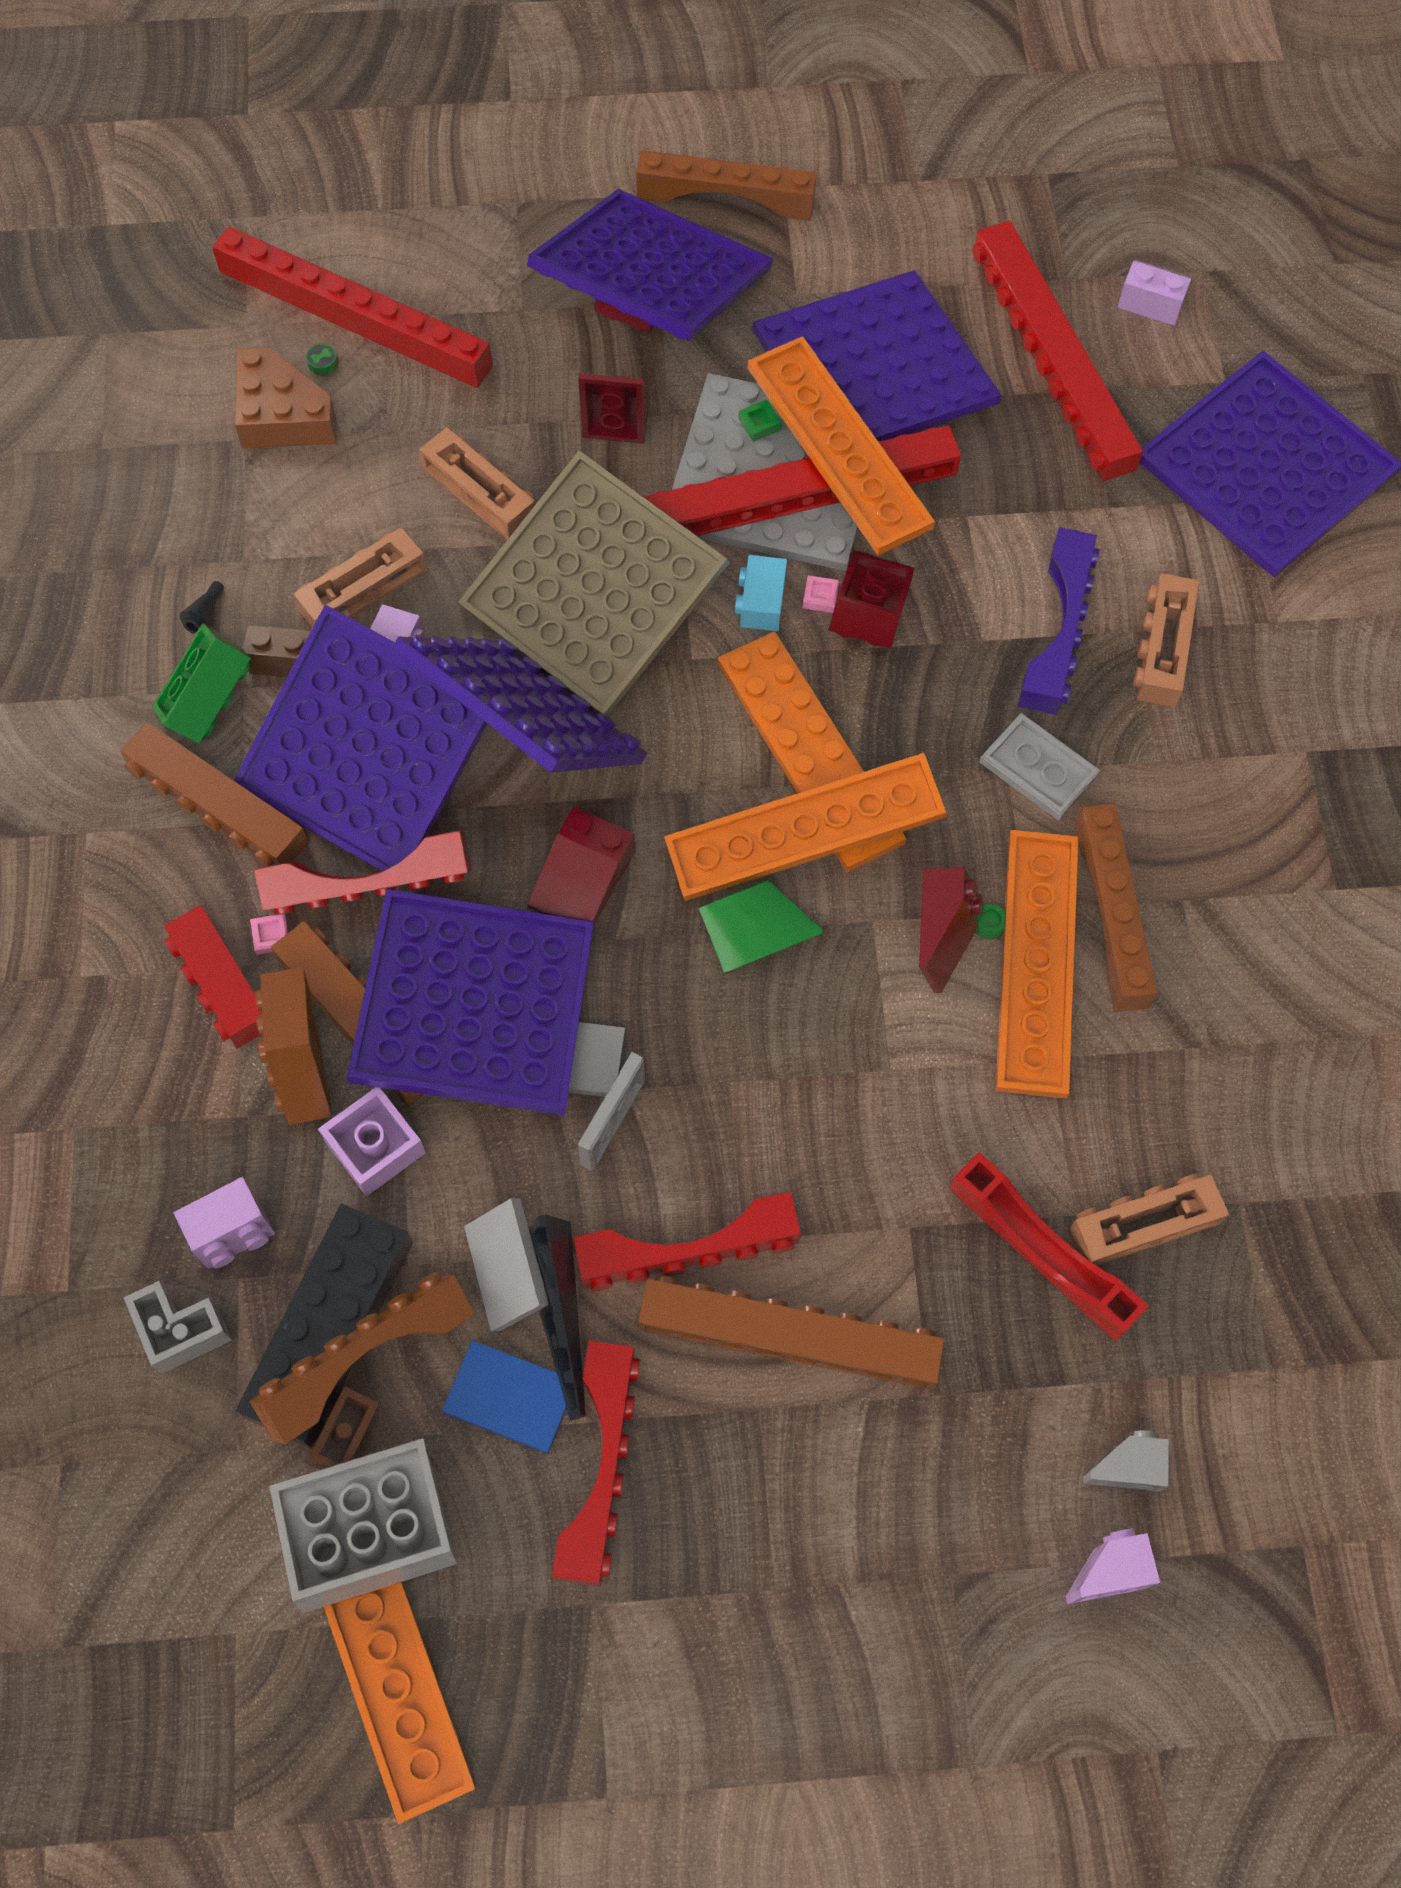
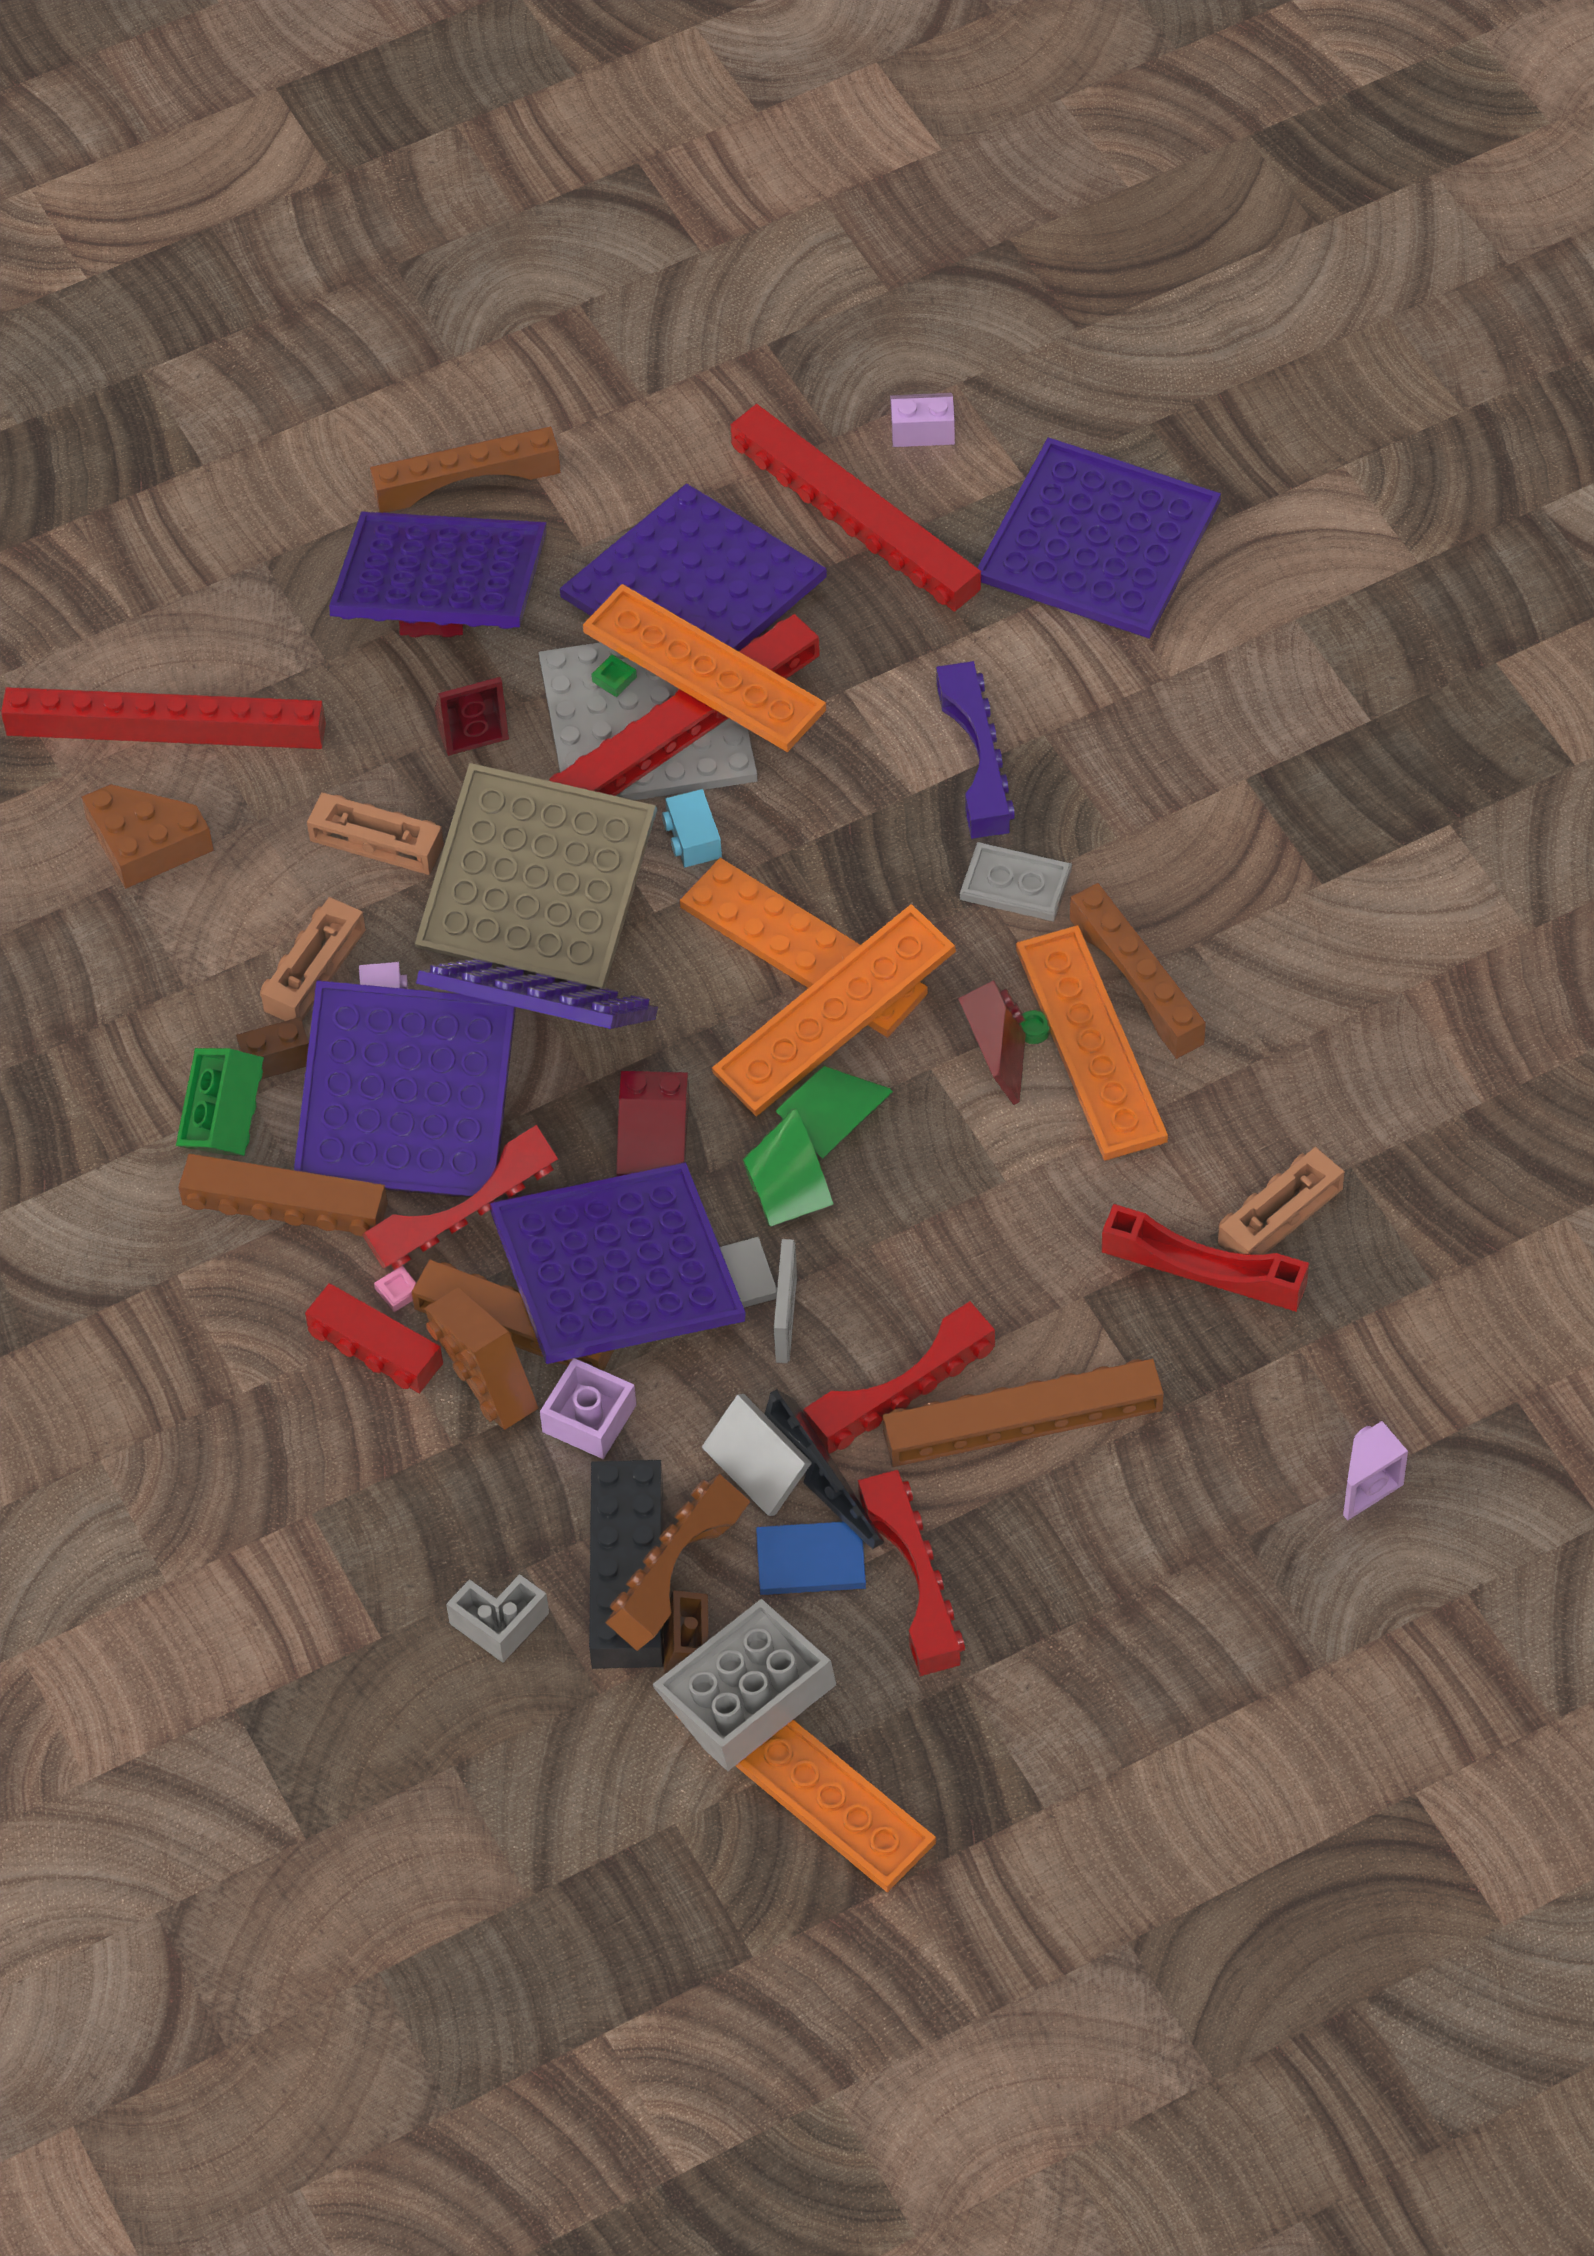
camera: 20 degrees left, 10 degrees down
(202, 609) = (176, 1049): black cone -> none
(224, 1224) = (498, 1519): lavender brick -> none
(321, 359) = (157, 778): tile -> none
(681, 975) = (787, 1172): none -> green slope
(820, 594) = (745, 809): bright pink tile -> none
(871, 599) = (795, 796): dark red slope -> none
(1135, 1463) = (1352, 1394): light grey slope -> none
(1166, 599) = (1062, 692): nougat brick -> none

